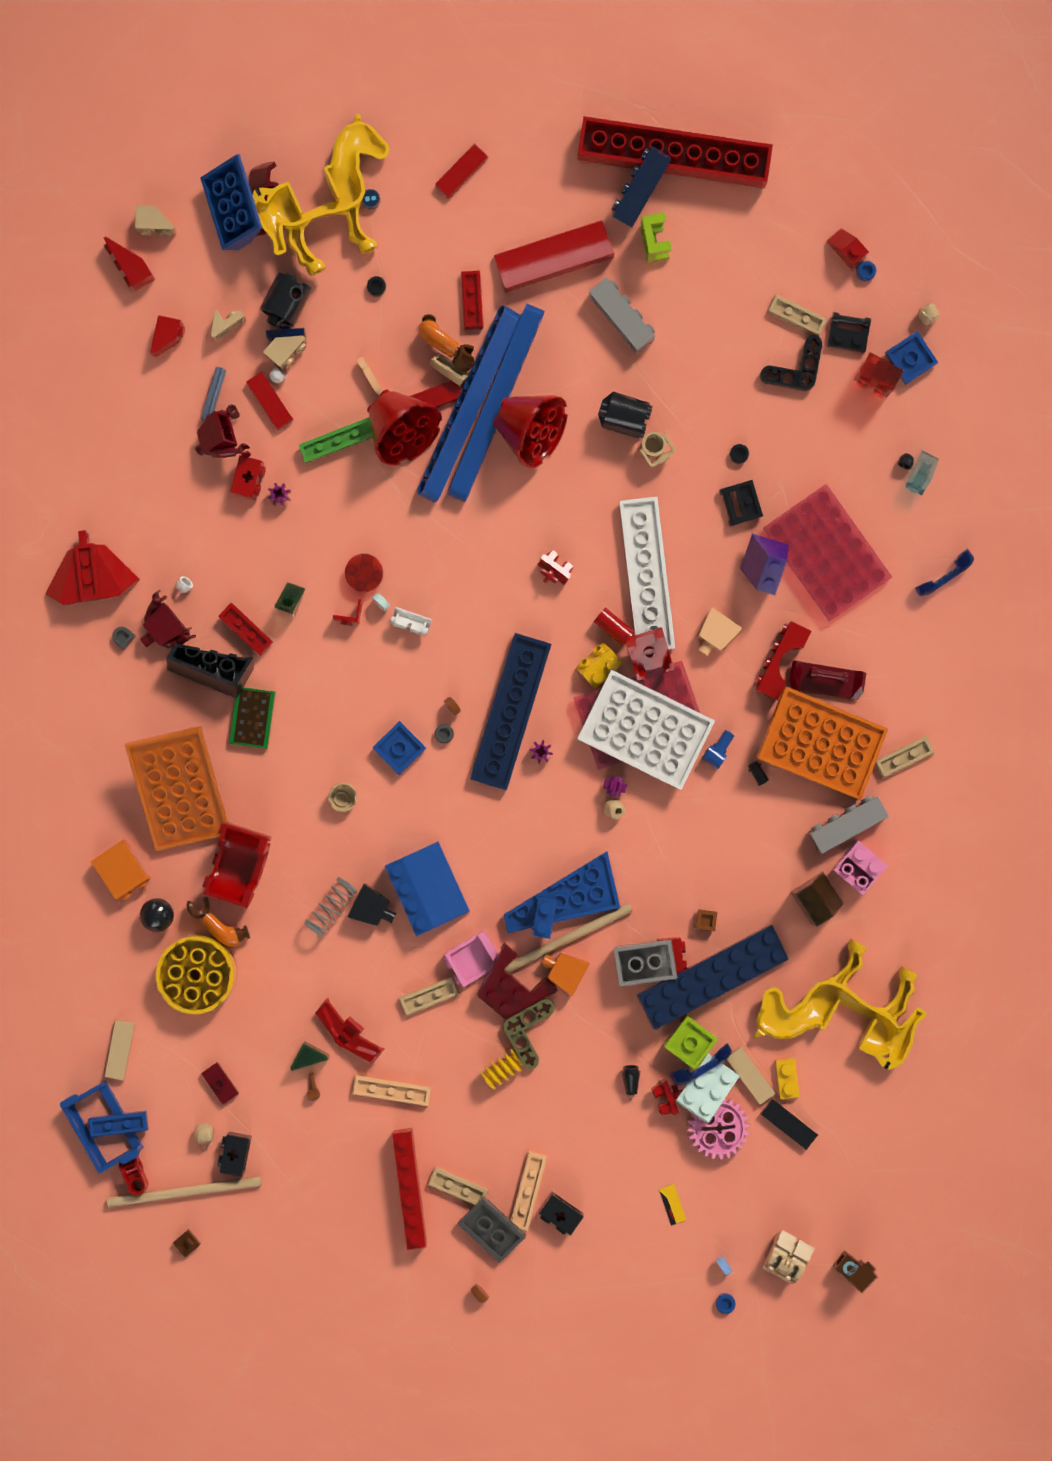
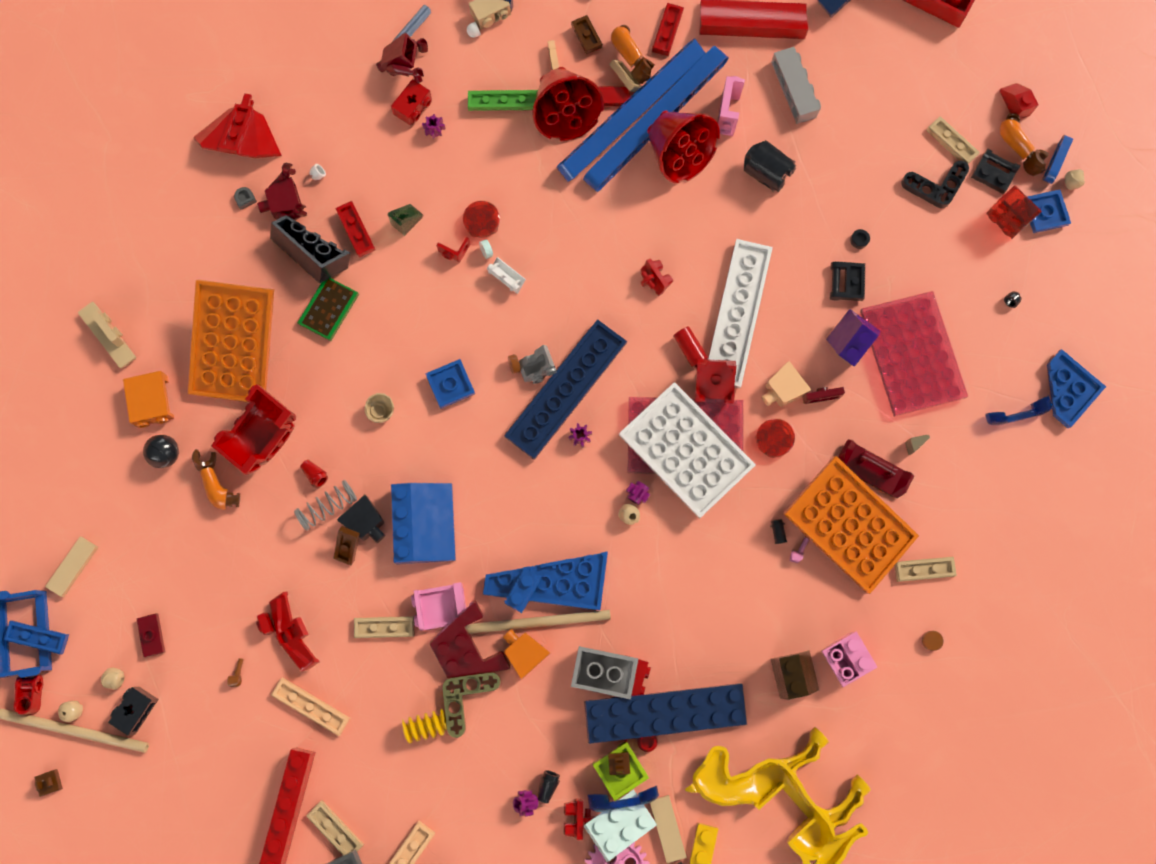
camera: 15 degrees right, 10 degrees down
(54, 824) = (108, 335): none -> tan bracket
(178, 1175) = (70, 711): none -> tan piece
(216, 972) = (152, 516): yellow brick -> none
(269, 400) = (458, 48): red tile -> none
(306, 880) = (314, 473): none -> red cone
(308, 1056) = (244, 640): clear green slope -> none
(320, 1034) = (265, 624): none -> red plate
(366, 936) = (346, 545): none -> reddish brown plate
(393, 337) = (586, 34): none -> reddish brown plate
(444, 733) = (497, 387): dark grey tile -> none
(475, 699) = (537, 365): none -> light grey cylinder
(564, 384) = (728, 119): none -> bright pink panel
(598, 665) = (663, 376): yellow bracket -> none
(617, 1101) = (525, 803): none -> magenta gear
(649, 226) = (848, 29): lime panel -> none
(653, 448) = (785, 203): tan piece -> none
(687, 1037) = (619, 763): none -> reddish brown tile
(706, 920) = (679, 654): dark orange plate -> none
(707, 1009) = (647, 744): none -> red plate
(716, 754) = (746, 497): blue pin -> none
(724, 685) = (775, 438): none -> clear red tile
(755, 626) = (823, 394): none -> dark red plate
(782, 789) = (798, 556): none -> bright pink hand
(793, 637) = (855, 419): red arch -> none
(848, 824) = (850, 613): light grey brick -> none
(854, 290) = (1014, 136): none -> piece
(857, 642) = (915, 443): none -> dark tan slope
(866, 271) = (1028, 125): blue tile -> none
(905, 298) = (1057, 159): none -> blue beam
(922, 473) = (1024, 314): clear light blue slope -> none
(931, 820) = (932, 640): none -> dark orange tile
(987, 531) = (1071, 388): none -> blue plate

